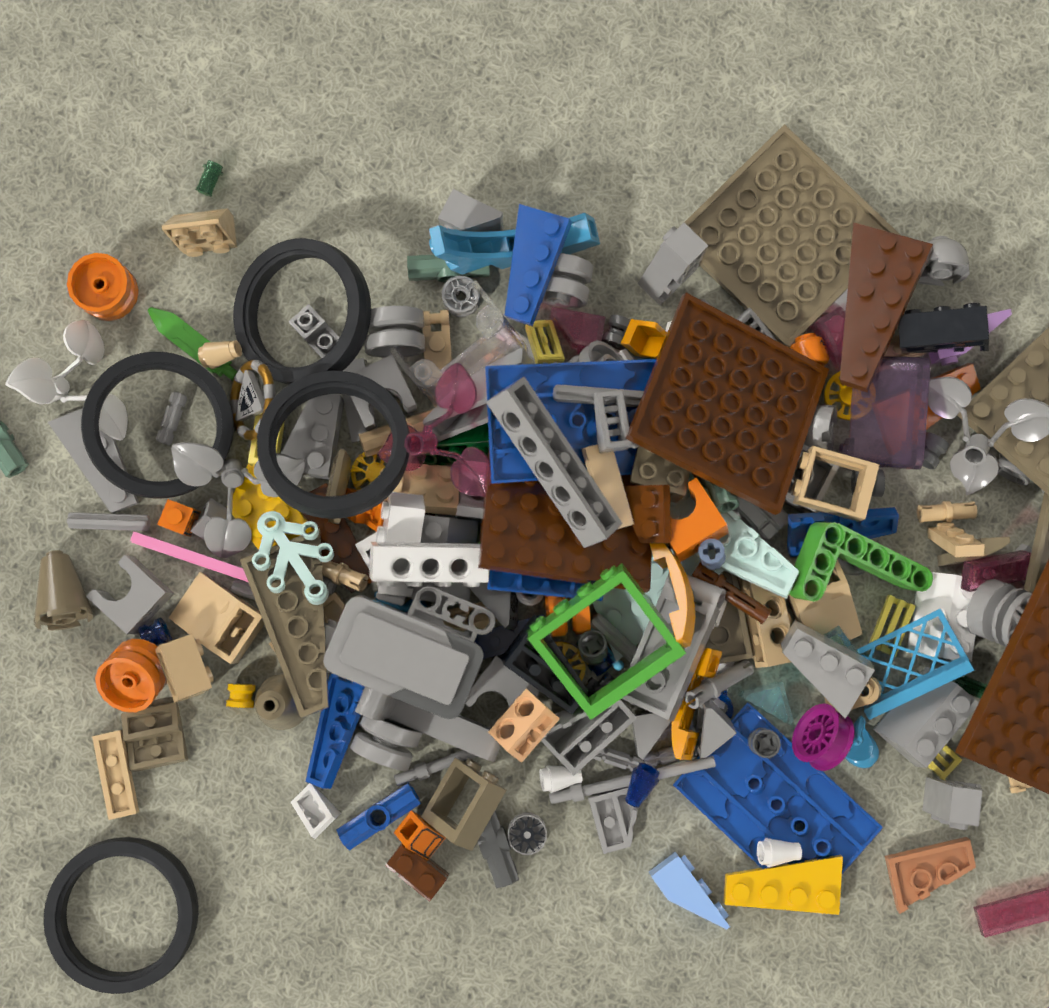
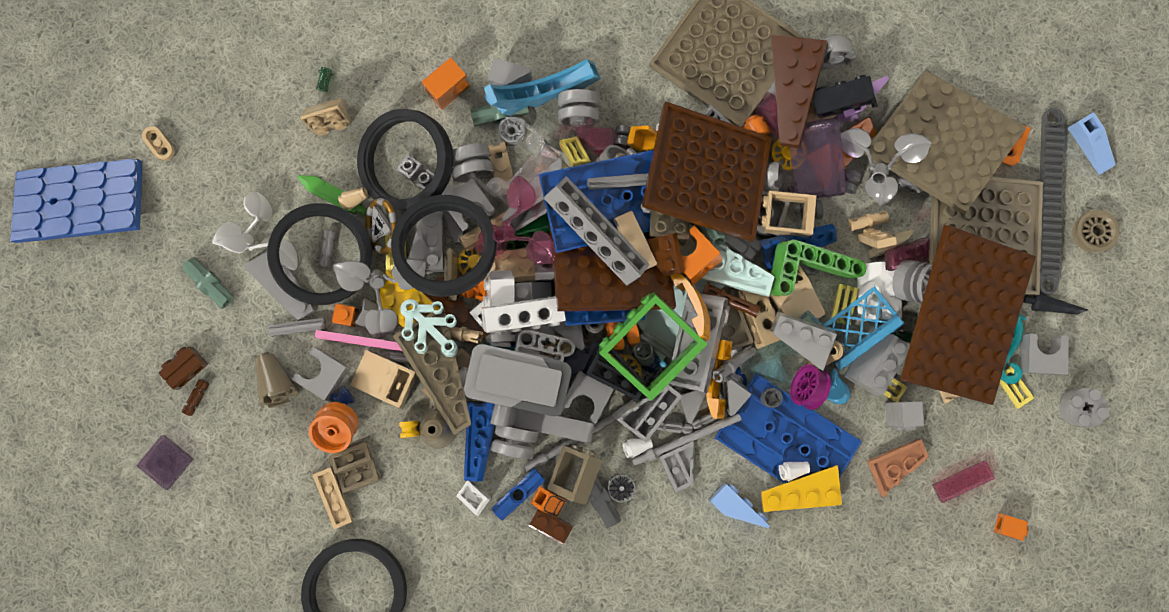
camera: 10 degrees left, 0 degrees up
(102, 287) = (264, 166): orange wheel -> none
(184, 668) = (368, 416): tan slope -> none
(379, 213) = (445, 83): none -> orange piece
(523, 725) = (606, 413): light nougat brick -> none
(534, 258) = (558, 89): blue wing -> none
(602, 422) = (626, 206): light grey slope -> none
(642, 782) = (693, 440): clear blue cone -> none
(673, 263) = (653, 83): light grey wedge -> none
(720, 557) = (708, 275): sand blue bush -> none

